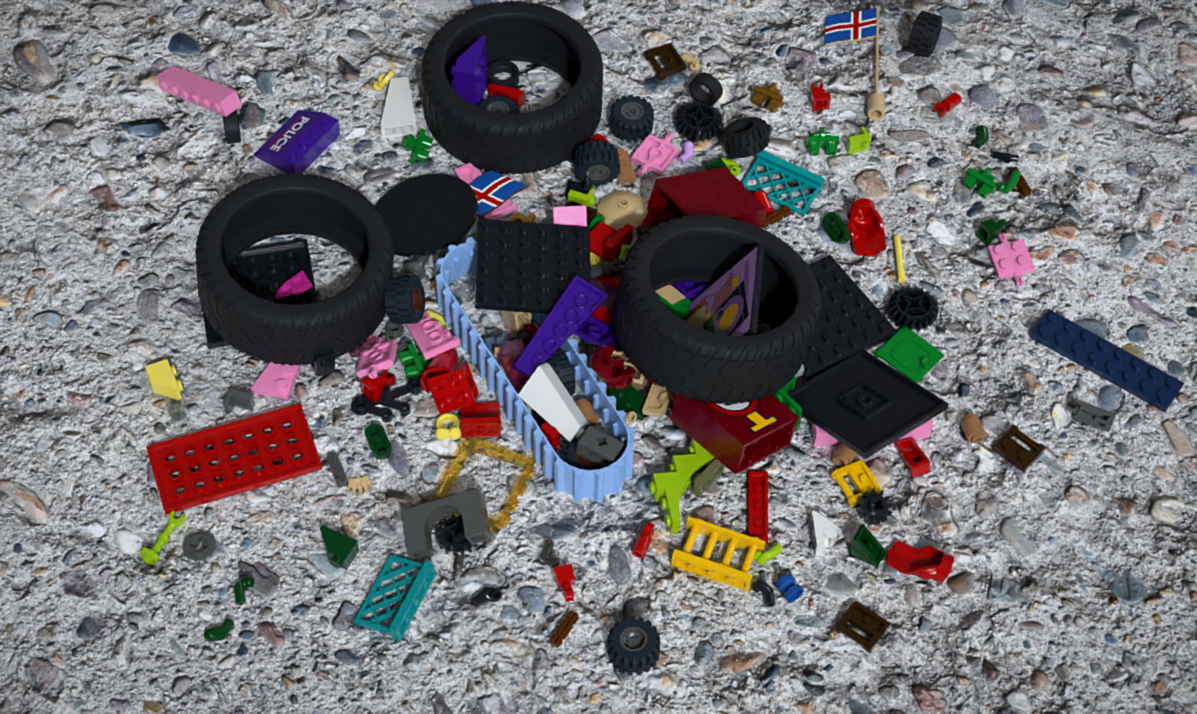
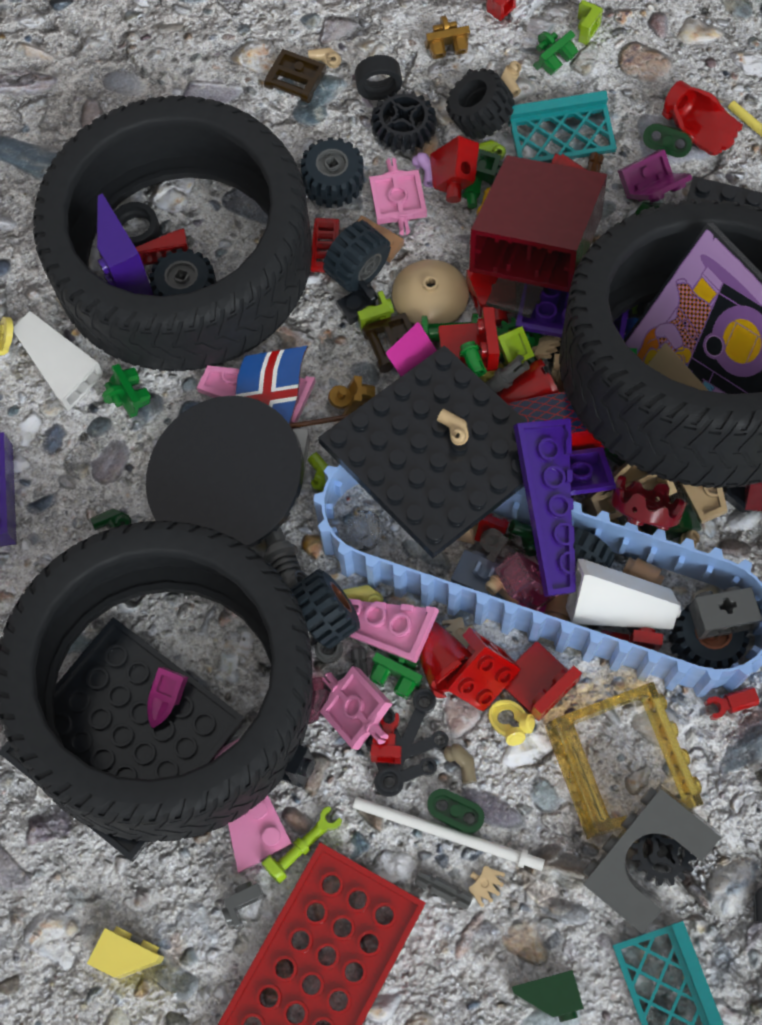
camera: 35 degrees left, 15 degrees up
(290, 400) = (301, 846): none -> lime piece
(388, 486) = (522, 858): none -> white bar
(407, 425) = (464, 759): none -> dark tan arm
(549, 259) = (457, 426): none -> tan arm
(568, 503) = (733, 702): none -> red bar
(598, 245) = (472, 357): none -> green pin
(698, 158) = (454, 167): none -> red torso
(783, 139) = (510, 76): none -> tan arm
(804, 236) = (651, 178): none -> magenta bracket

